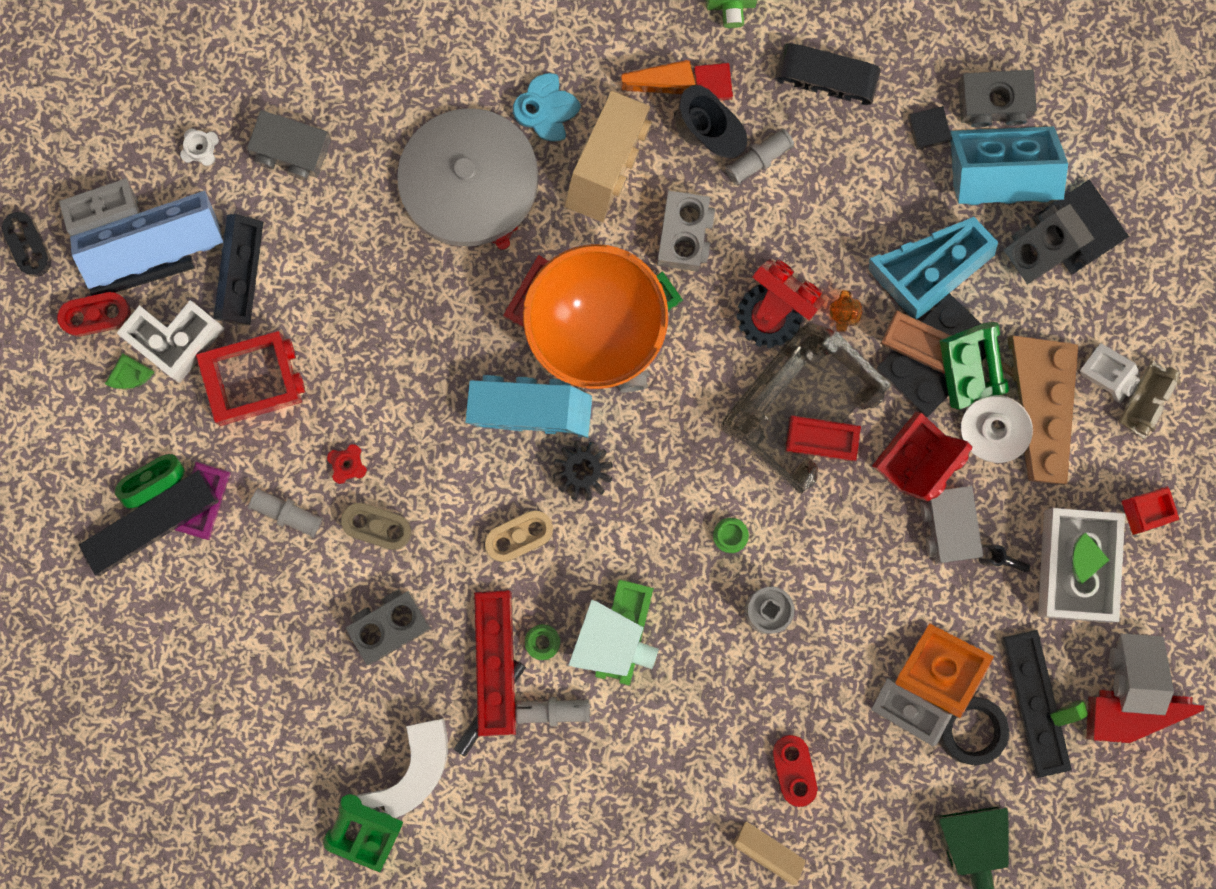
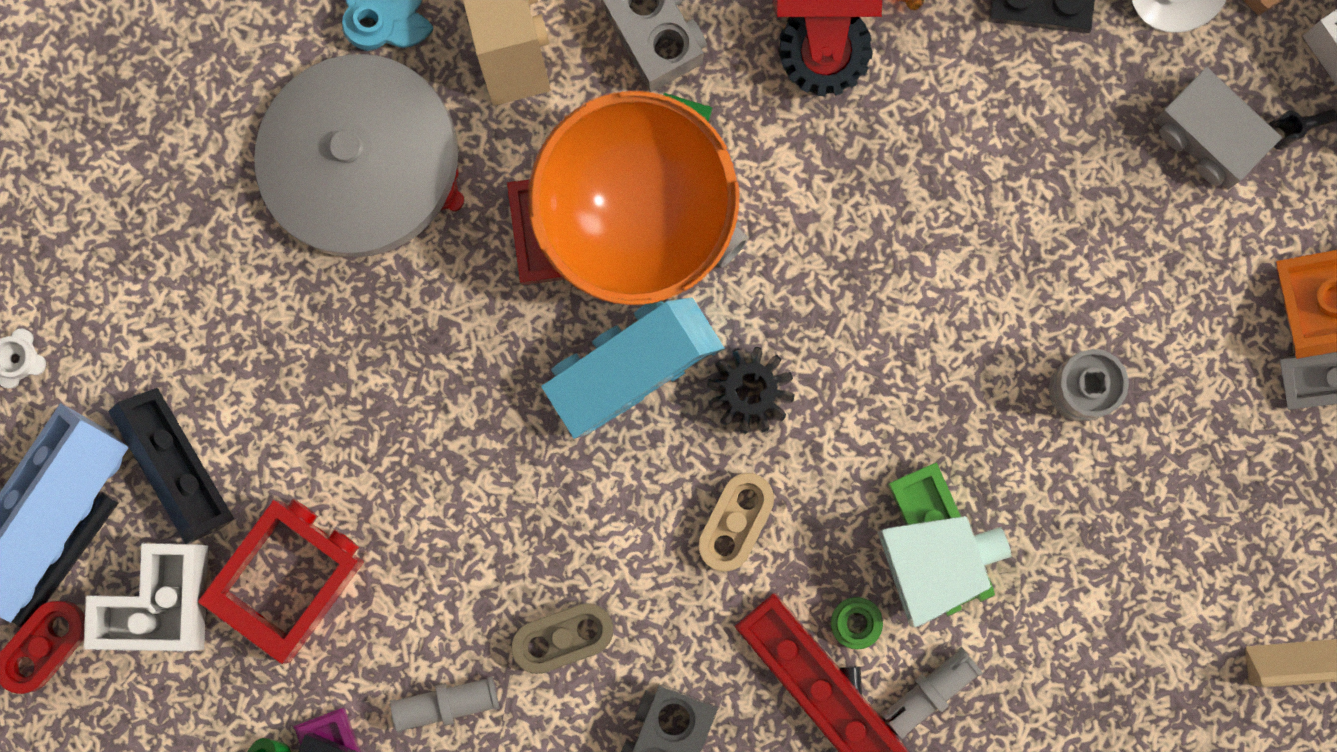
camera: 30 degrees left, 0 degrees up
(128, 374) = (135, 685): bright green tile -> none
(288, 145) = (118, 276): dark grey brick -> none
(355, 469) = (457, 595): red plate -> none
(730, 535) = (975, 334): bright green plate -> none
(794, 771) = (1257, 547): red plate -> none
(808, 378) = (938, 120): clear smoke windscreen -> none
(822, 438) = (993, 144): red tile -> none
(922, 458) = (1127, 79): red bracket -> none

